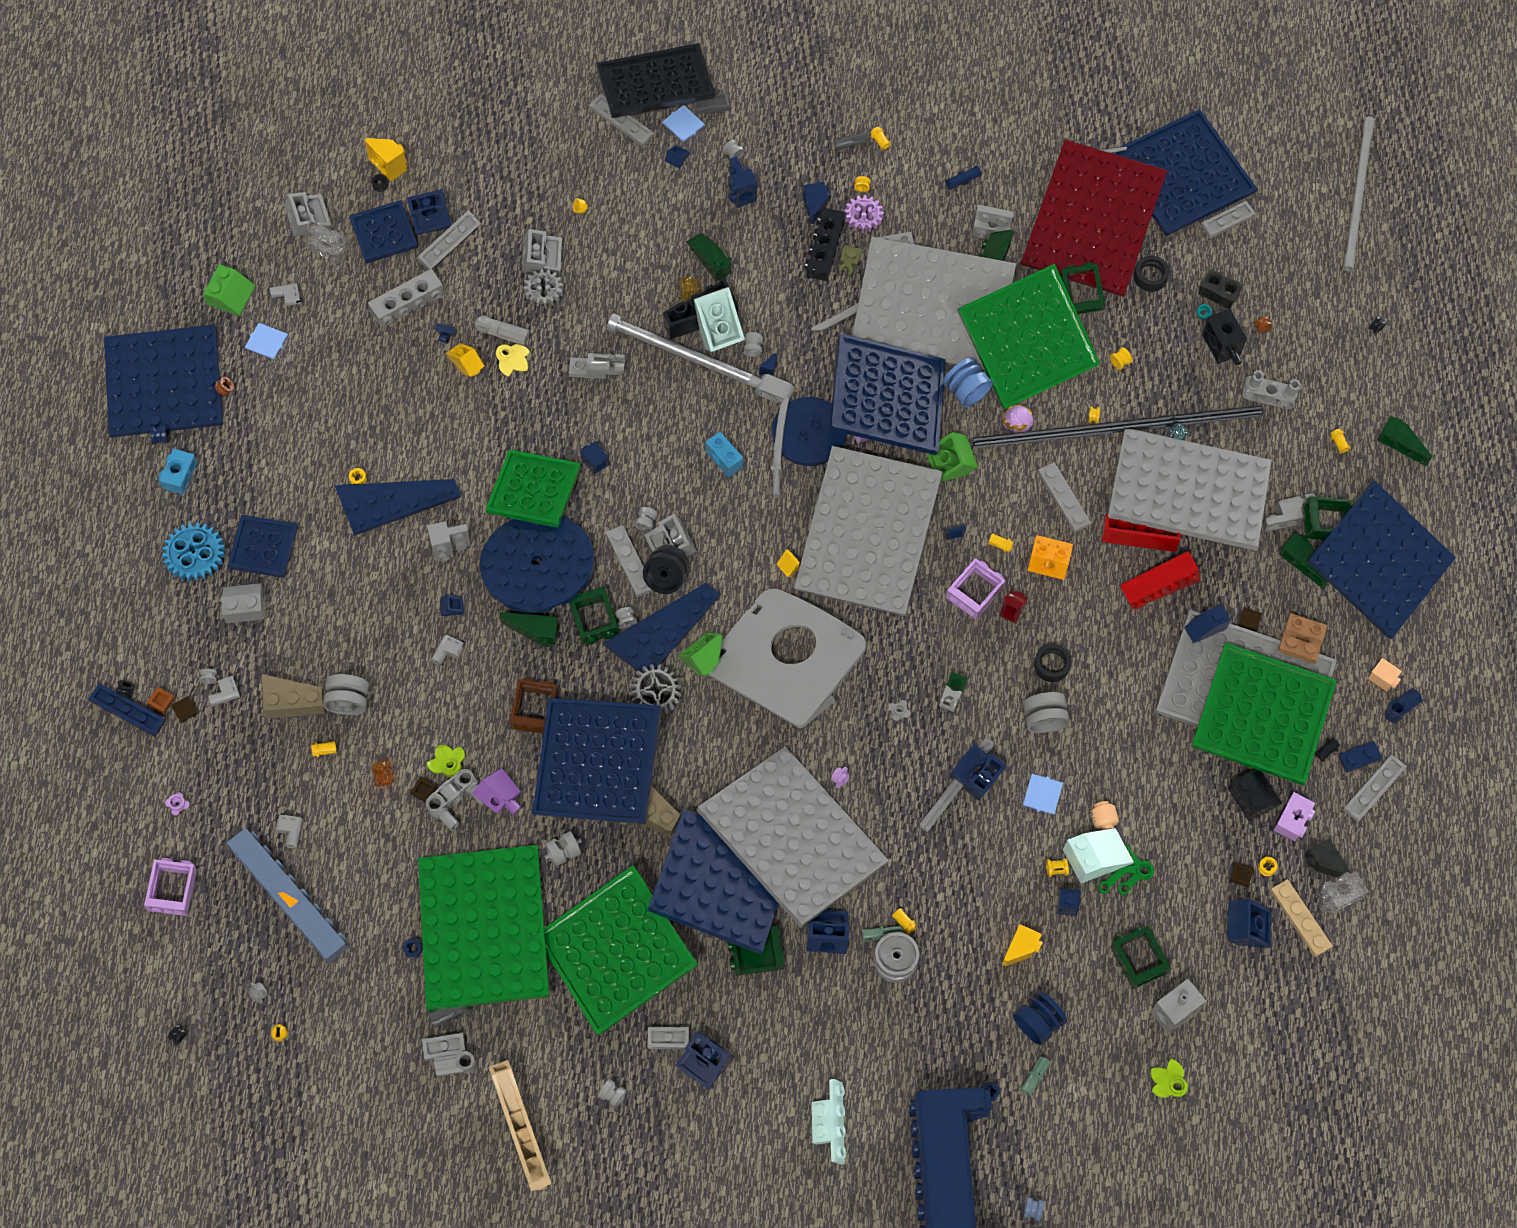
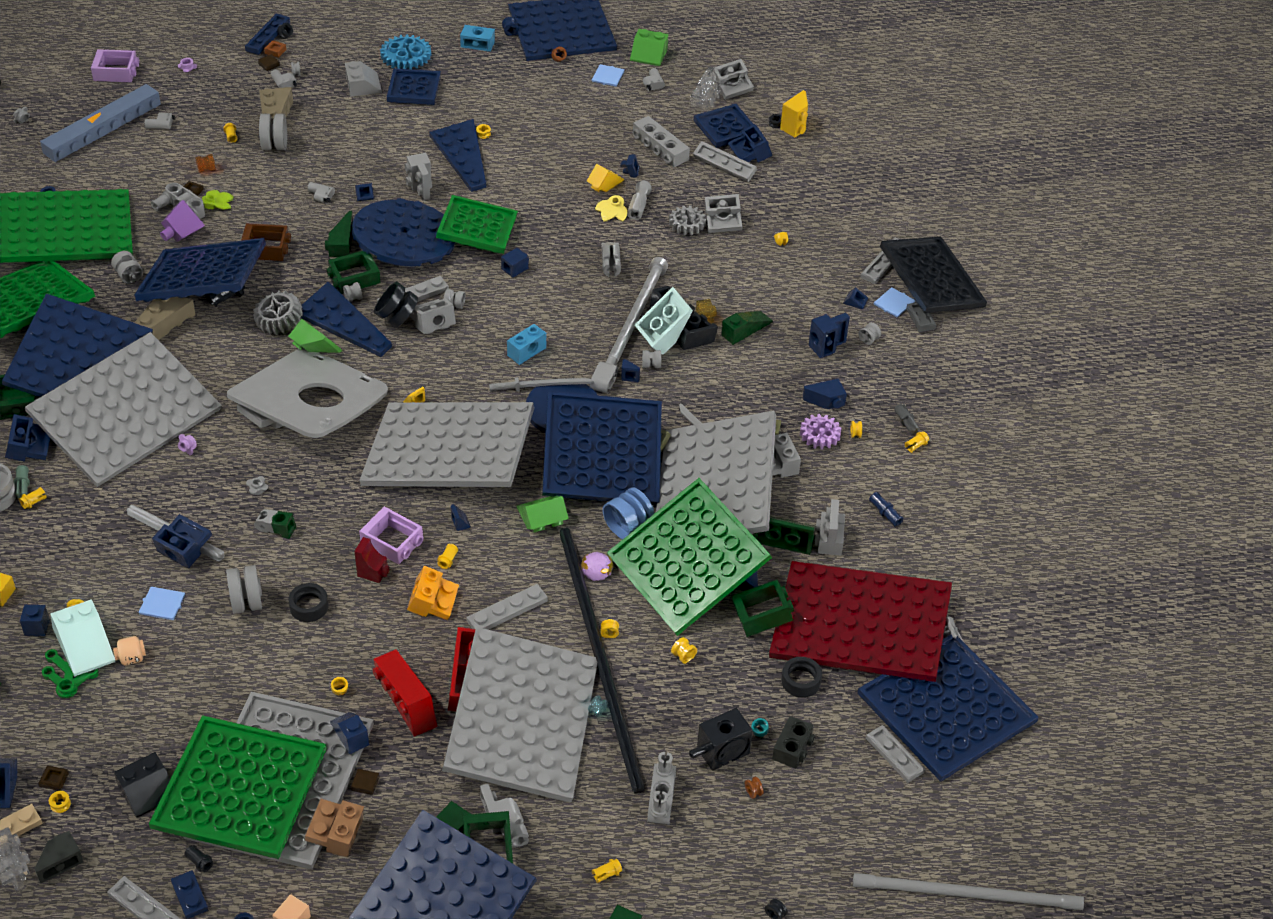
camera: 85 degrees right, 20 degrees down
(821, 269) = (785, 404): black brick -> none
(1153, 637) = (339, 682): none -> yellow hinge
(1287, 824) = (114, 823): lavender brick -> none

